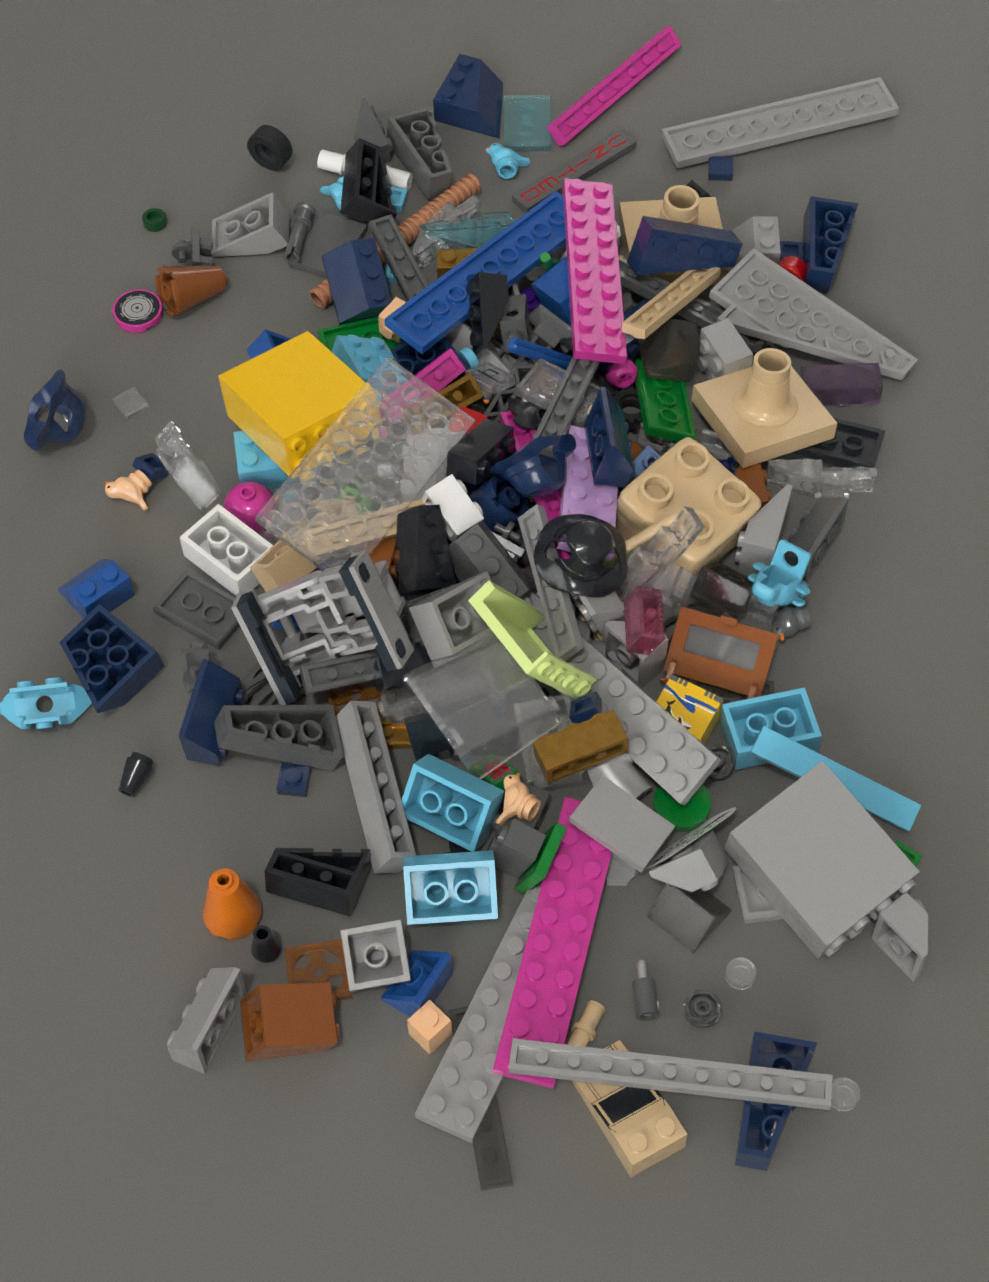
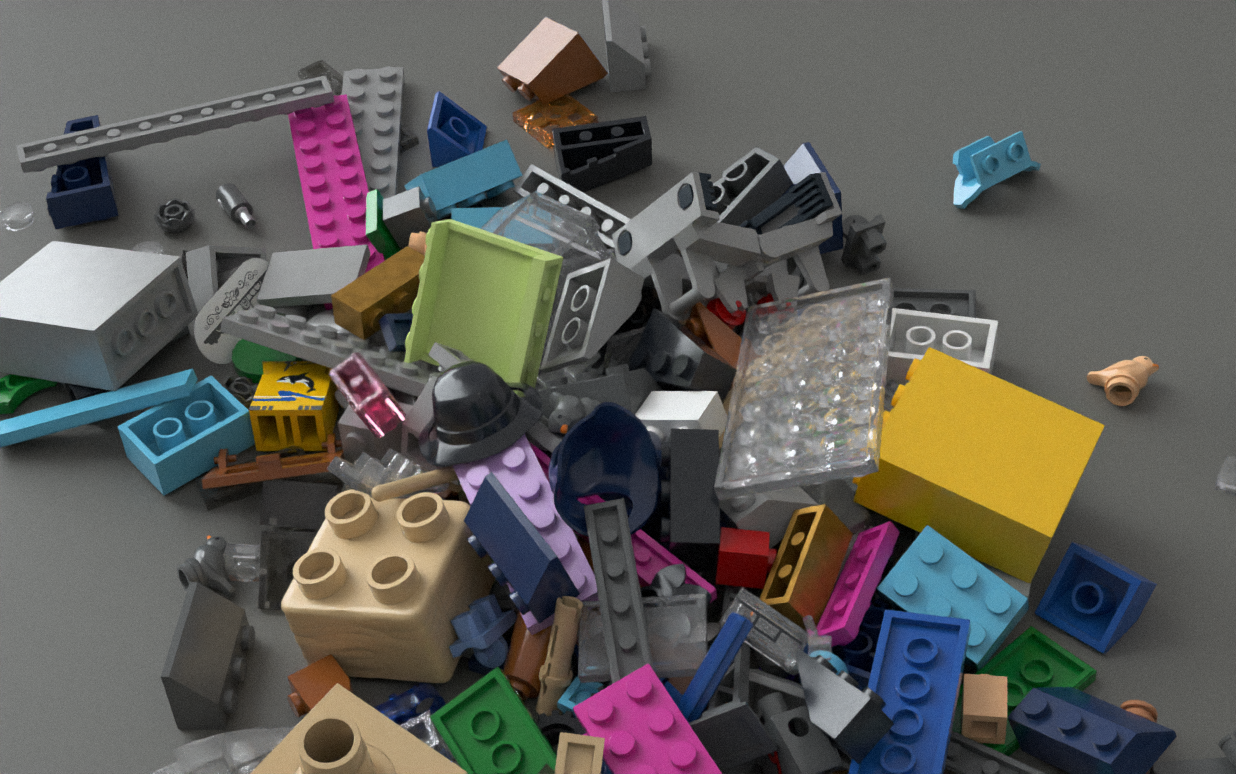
camera: 155 degrees right, 15 degrees down
(99, 584) = (1053, 277): blue slope -> none
(109, 659) = (966, 221): dark blue wedge -> none
(135, 772) = (850, 166): black cone -> none
(150, 466) = (1126, 408): dark blue plate -> none
(185, 467) = (1116, 421): clear slope -> none
(230, 906) = (669, 105): orange cone -> none
(265, 945) = (614, 102): black cone -> none
(376, 955) = (507, 120): light grey slope -> none
(429, 1027) = (418, 108): light nougat brick -> none
(470, 353) = (817, 643): none -> clear hand
(520, 535) = (568, 411): none -> dark grey animal
(585, 1028) = (282, 164): tan pin -> none
(634, 1121) = (235, 150): tan slope -> none
(763, 533) = (269, 637): light grey slope -> none
(779, 581) = (231, 554): medium azure piece -> none

